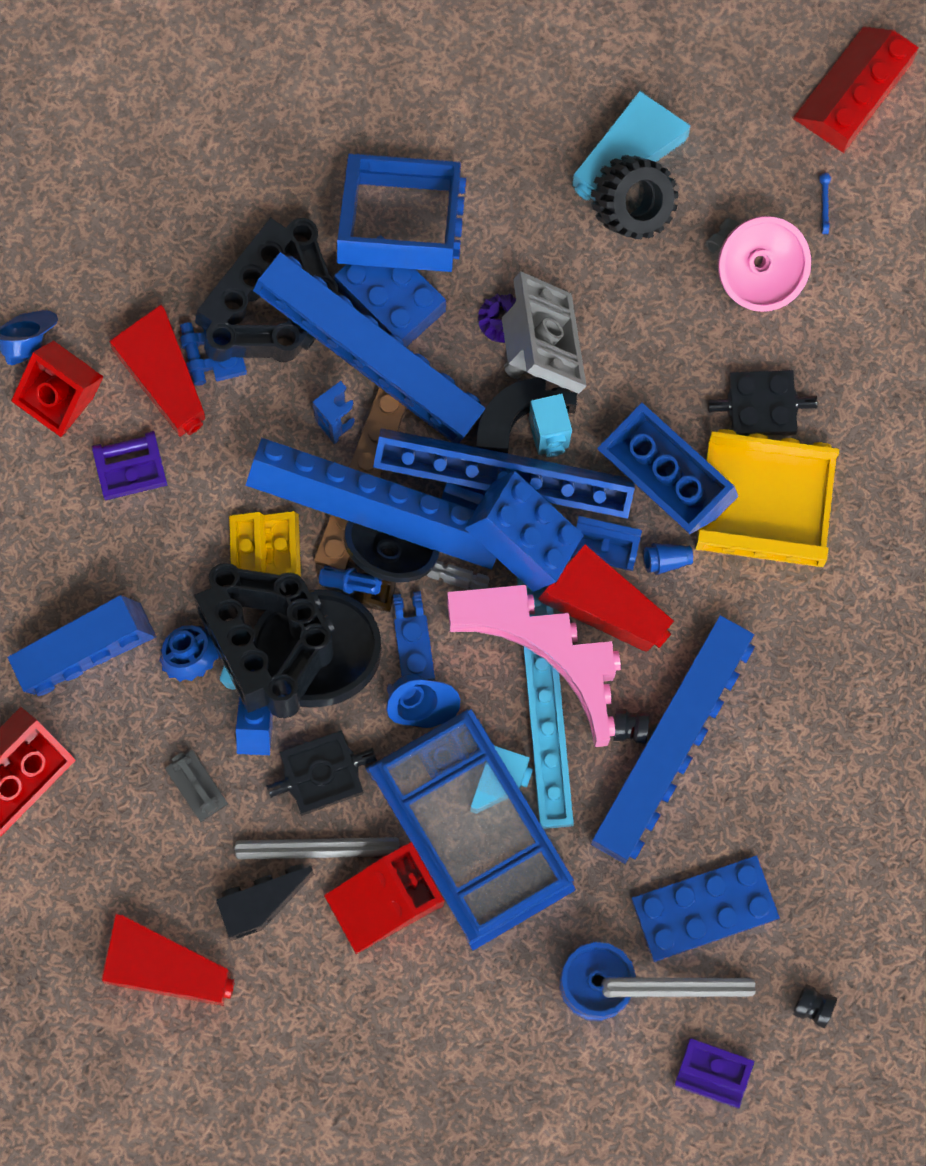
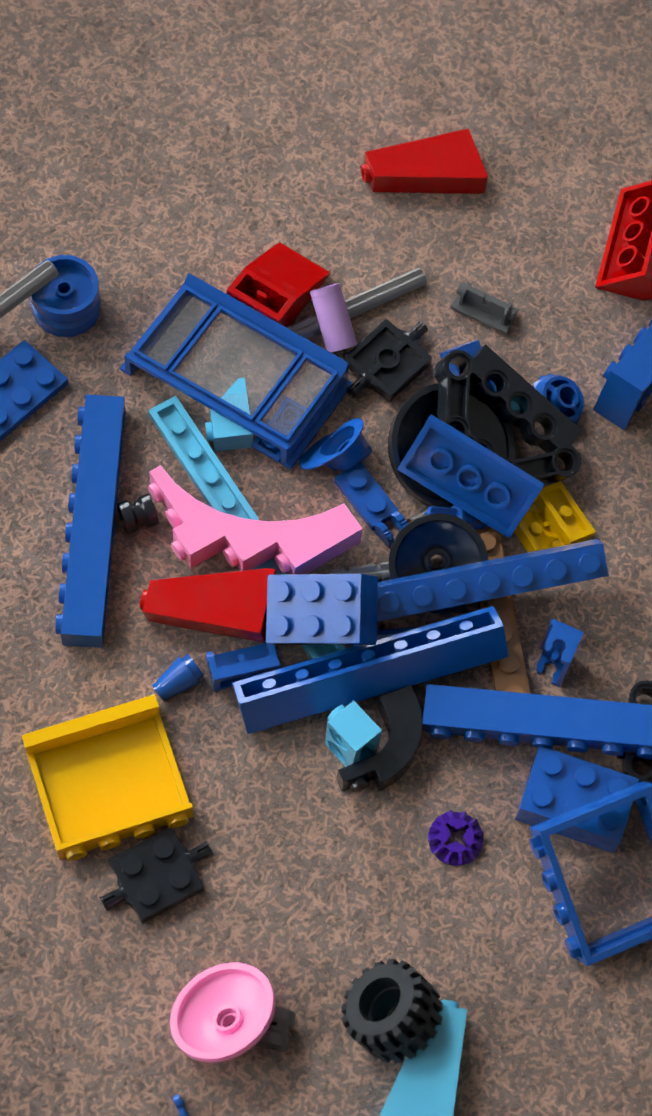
camera: 150 degrees right, 10 degrees down
(254, 907) = (382, 235): black slope -> none
(325, 592) = (470, 476): none -> blue plate
(353, 830) = (333, 318): none -> lavender pin
(543, 334) = (403, 812): light grey brick -> none
(668, 470) = (216, 747): blue slope -> none

